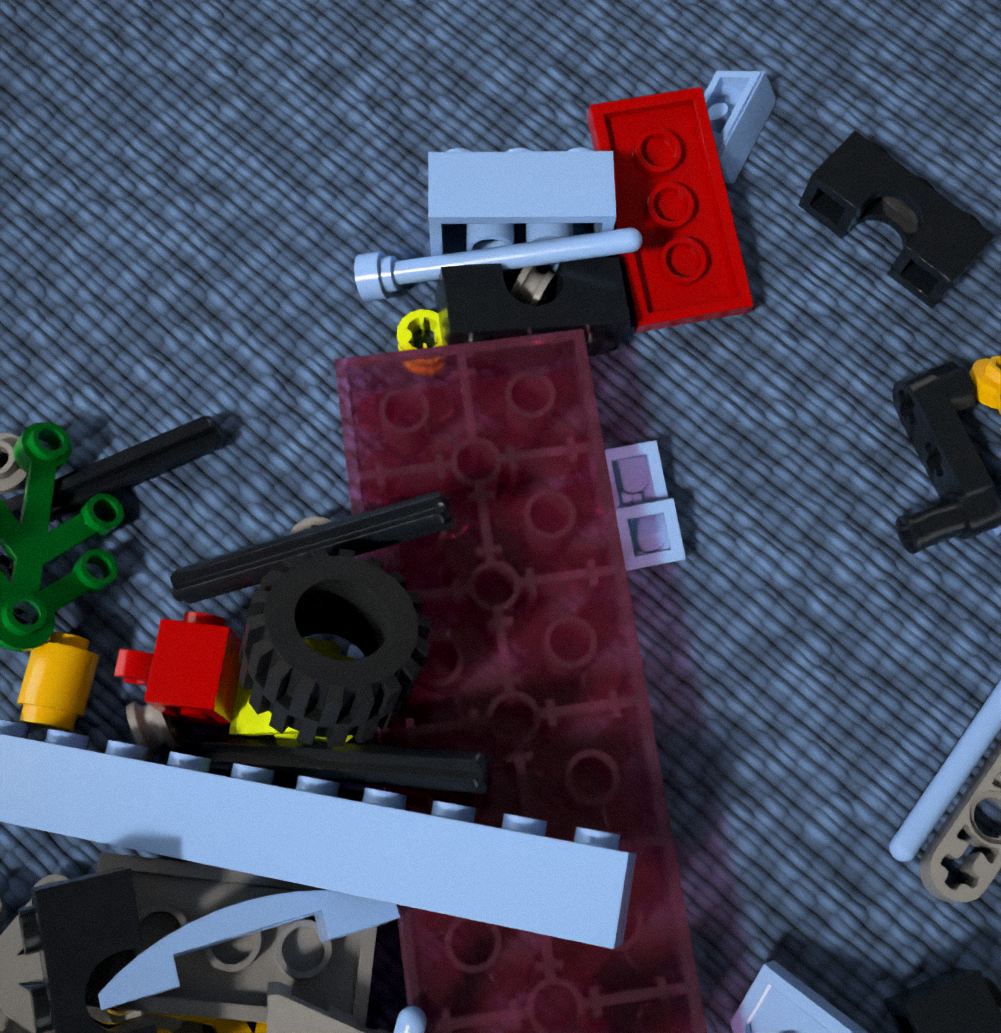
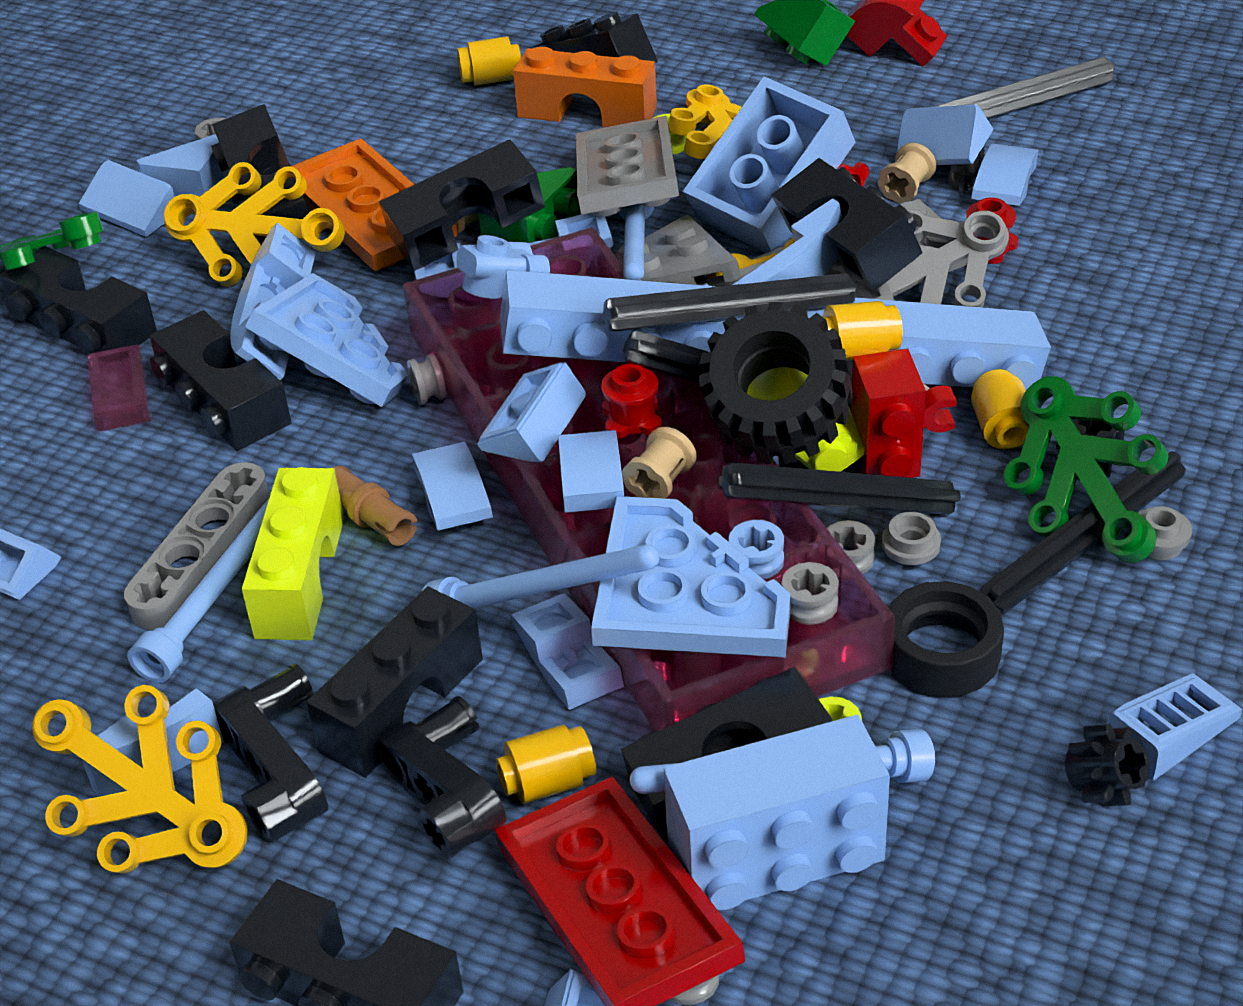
camera: 170 degrees right, 30 degrees down
(144, 225) = (1190, 734): none -> light blue slope
(189, 738) = (865, 327): none -> yellow brick
(219, 206) = (1107, 765): none -> black gear
(244, 518) = (911, 539): none -> light grey plate
(263, 353) = (954, 606): none -> black tyre
(331, 817) = (724, 301): none -> black axle
(422, 383) = (812, 592): none -> light grey bush
(450, 452) = (762, 544): none -> light blue bush
(499, 610) = (664, 458): none -> tan bush
(500, 711) = (631, 400): none -> red brick
(530, 435) = (696, 594): none -> light blue plate
(575, 639) = (590, 470): none -> light blue slope
(615, 770) = (534, 414): none -> light blue slope
(693, 363) = (546, 763): none -> yellow brick
(712, 784) = (452, 486): none -> light blue slope
(716, 992) = (426, 379): none -> light grey bush
(743, 589) = (549, 578): none -> light blue piece
(779, 319) = (456, 799): none -> black beam
(812, 781) = (371, 507): none -> medium nougat pin
(816, 494) = (425, 644): none -> black arch
(900, 747) = (283, 573): none -> neon yellow arch

